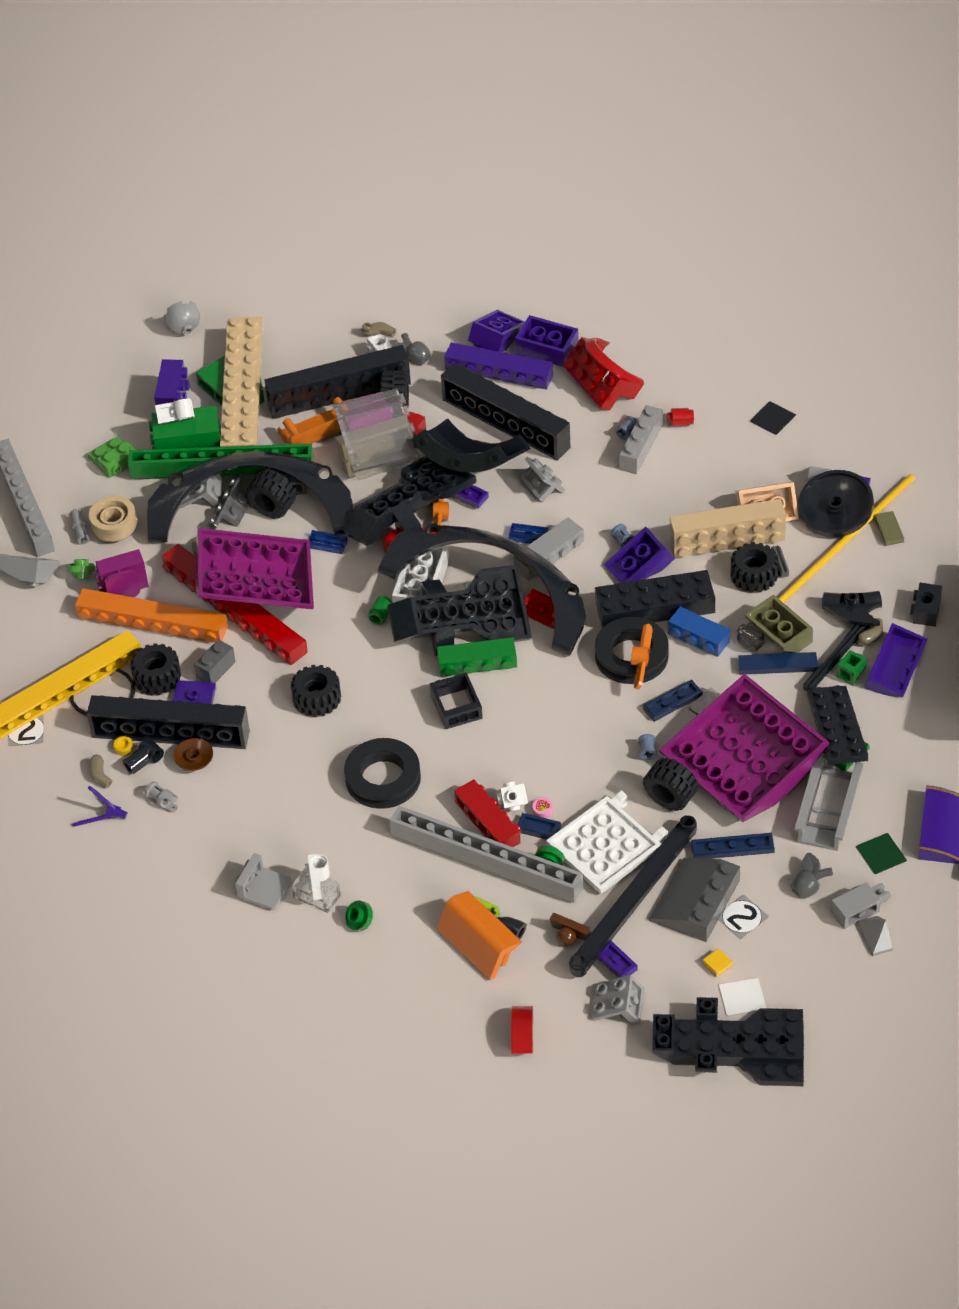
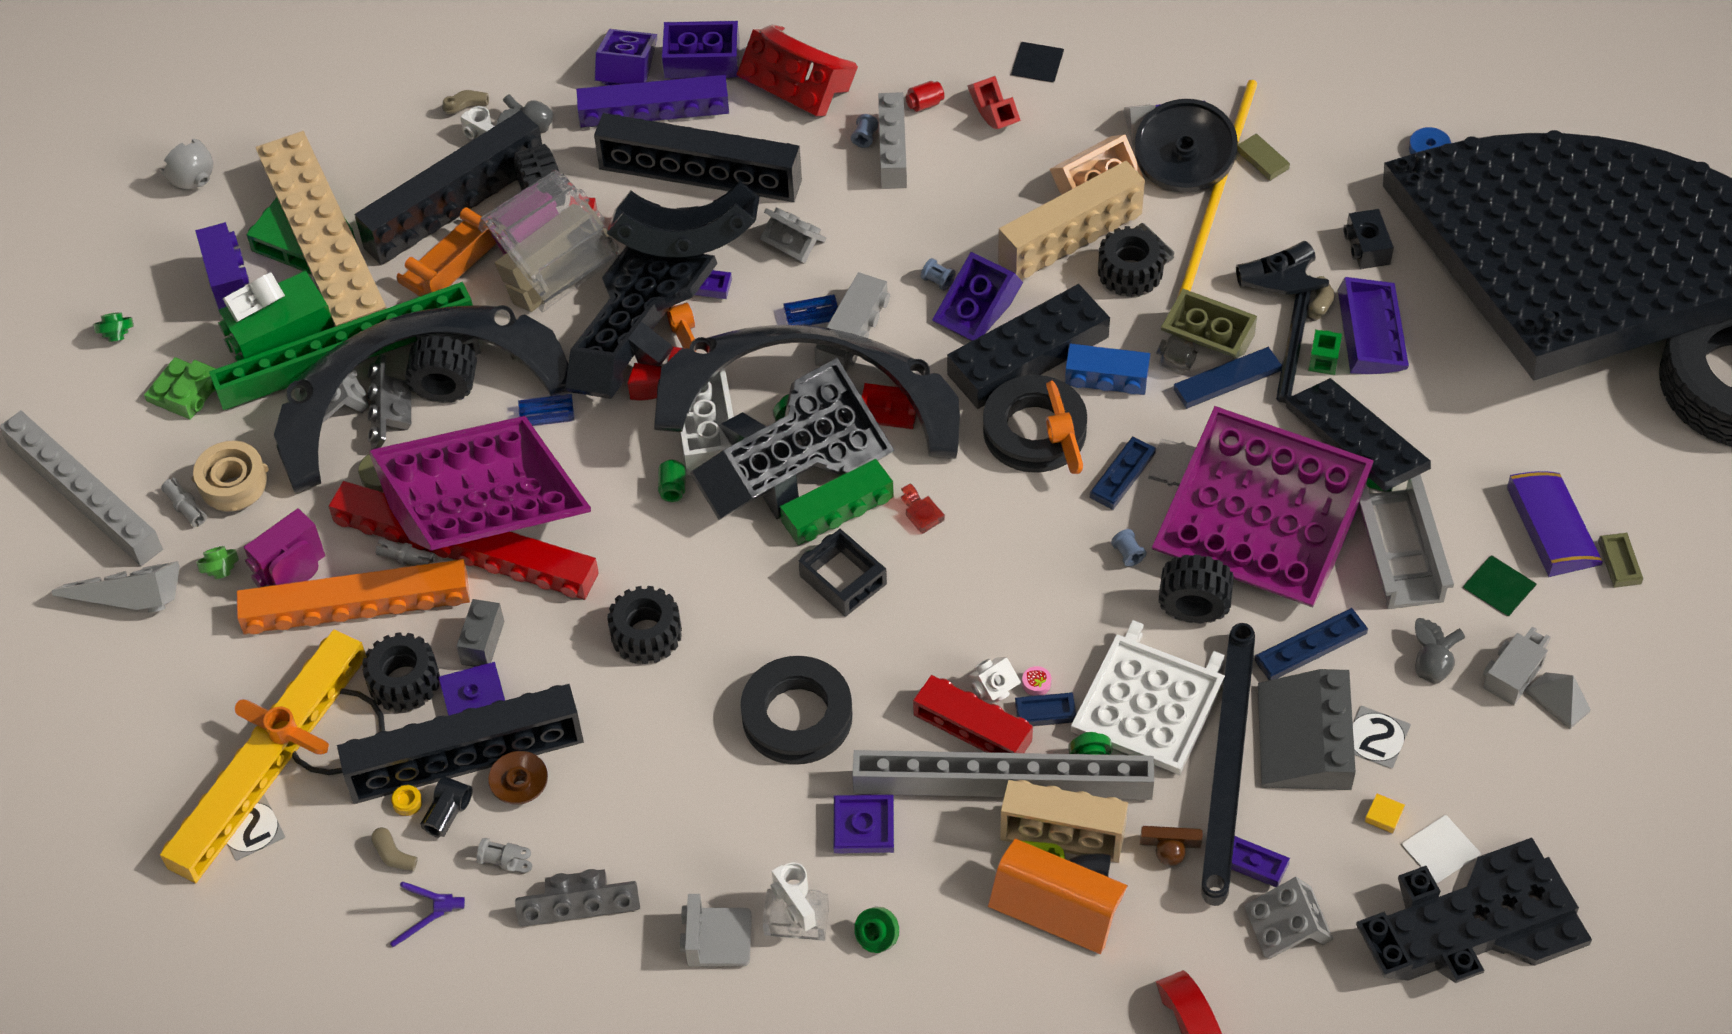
camera: 25 degrees left, 5 degrees up
(70, 680) = (269, 718): none -> orange piece
(89, 405) = (113, 326): none -> green plate
(192, 835) = (577, 897): none -> flat silver bracket
(193, 600) = (403, 553): none -> light grey pin
(386, 853) = (863, 824): none -> dark purple plate
(507, 891) = (1064, 818): none -> tan brick
(528, 681) = (923, 512): none -> clear red plate
(723, 435) = (991, 105): none -> red brick

